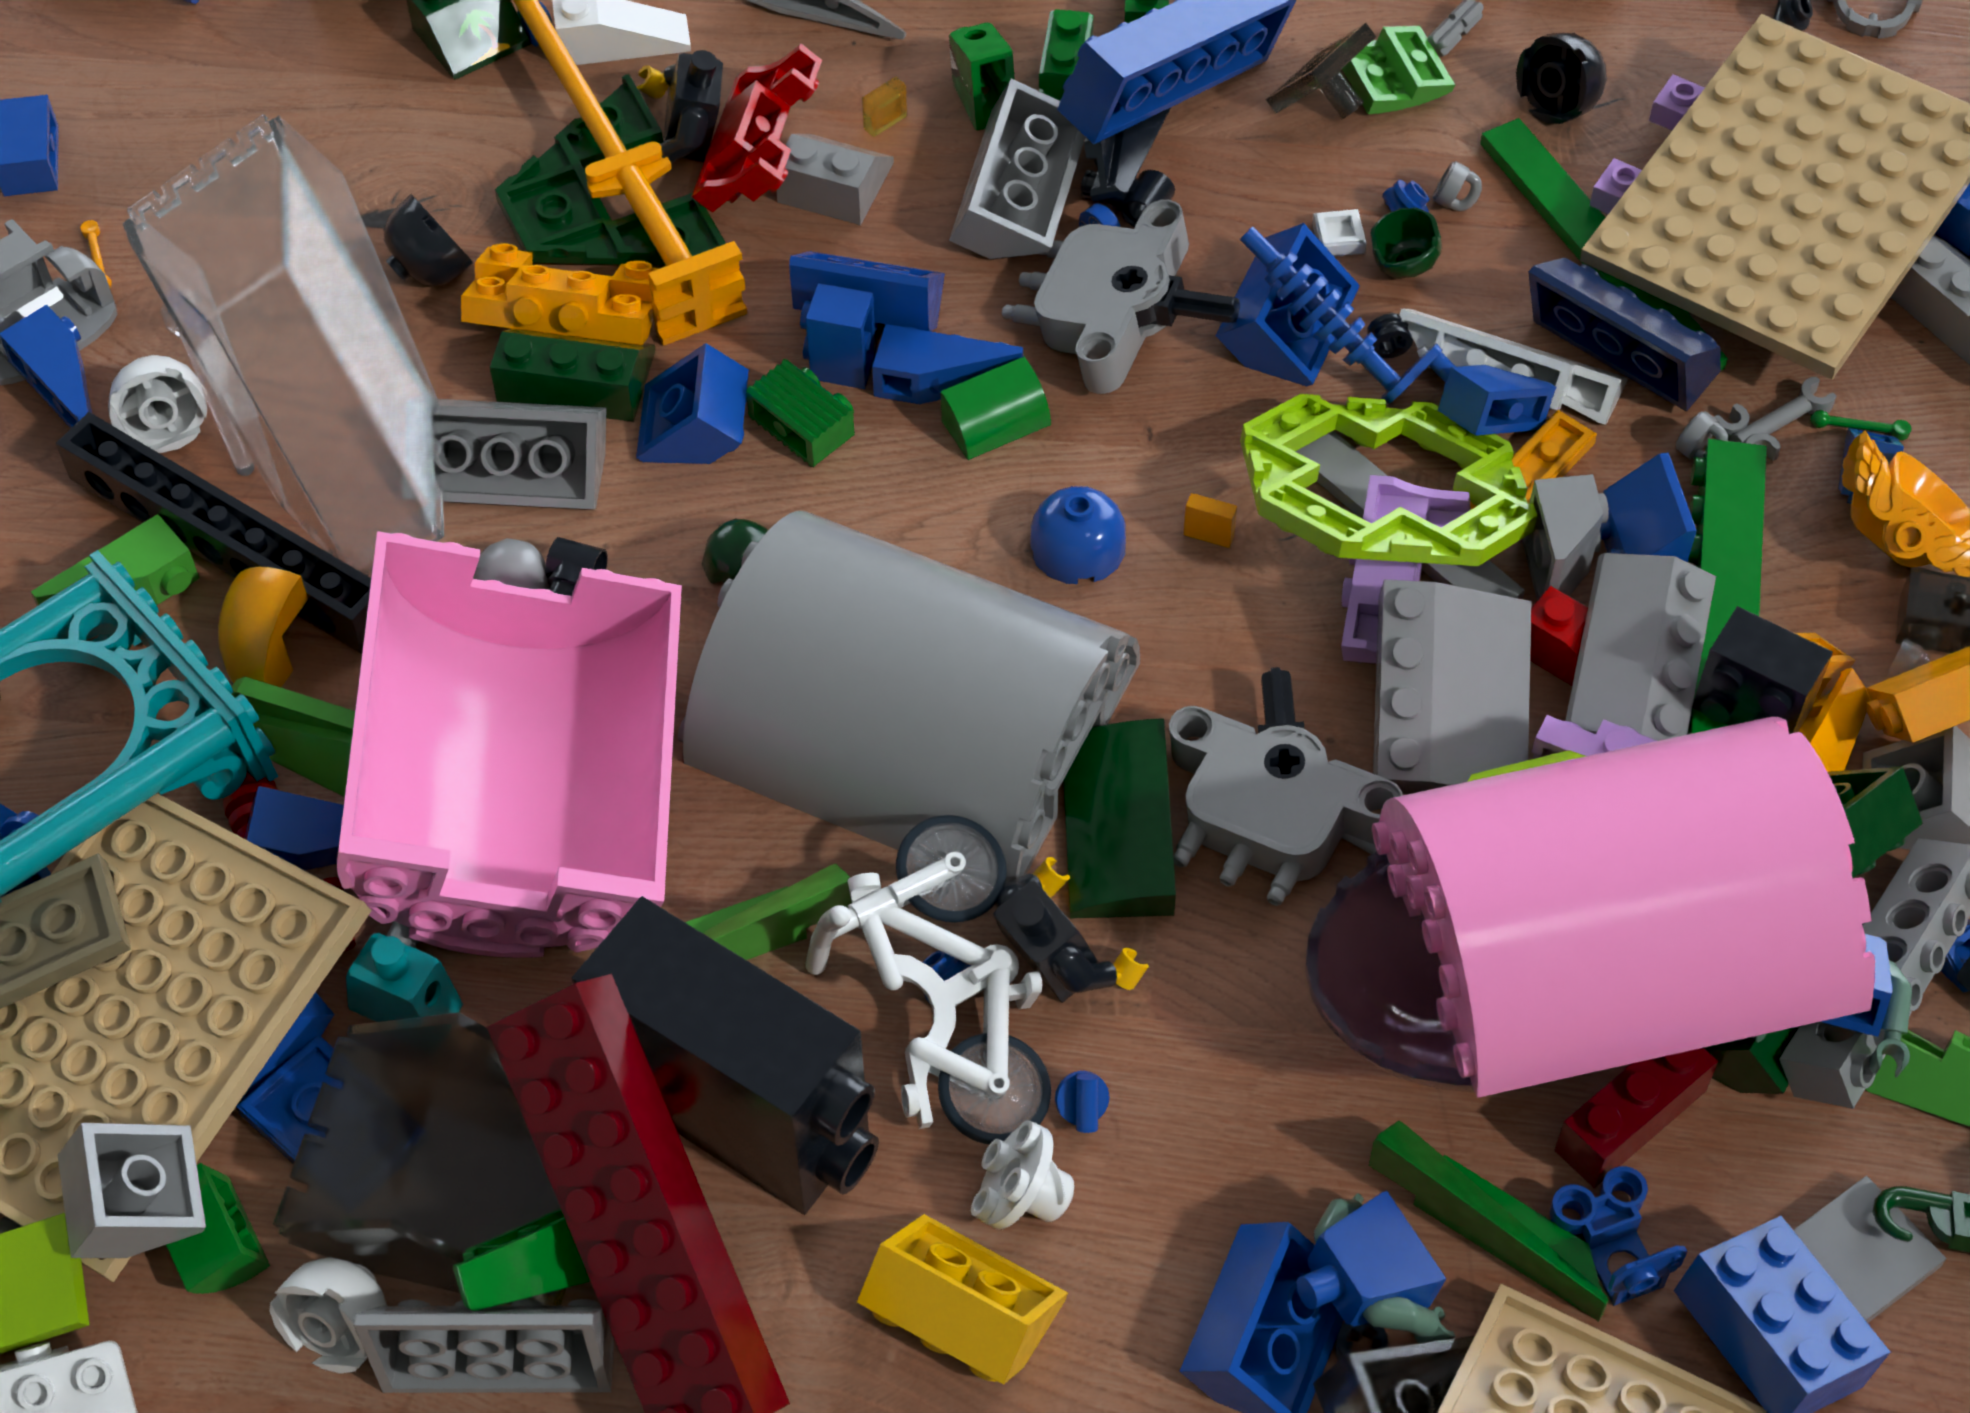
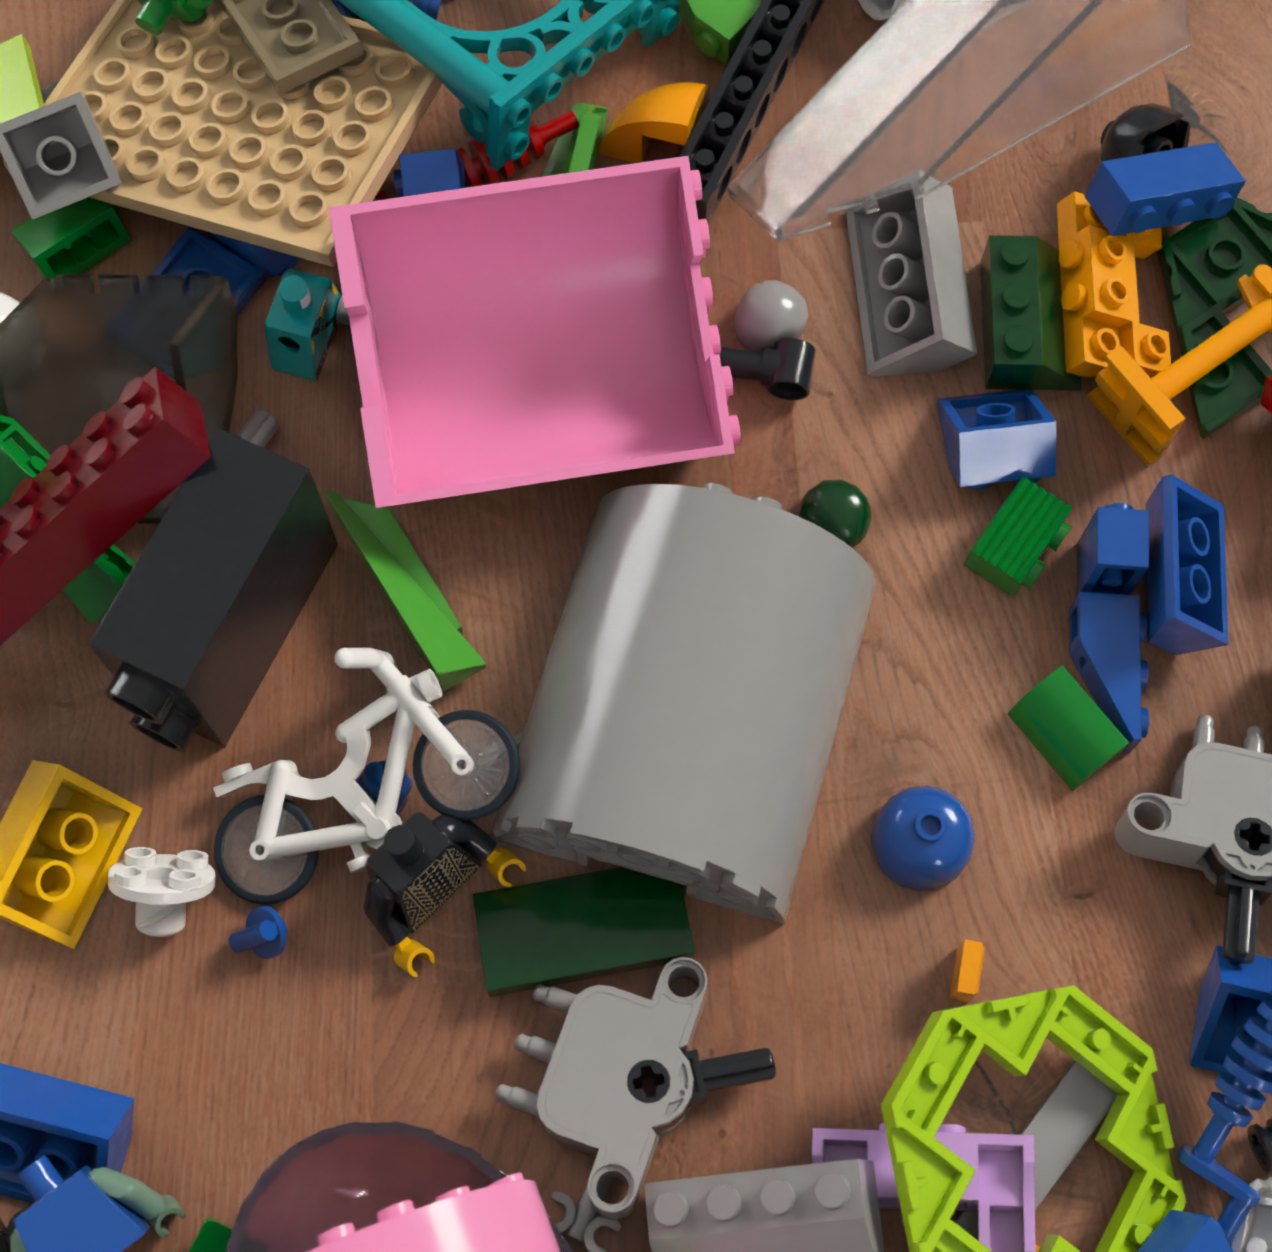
camera: 80 degrees right, 15 degrees up
(487, 222) = (1164, 188): none -> blue brick

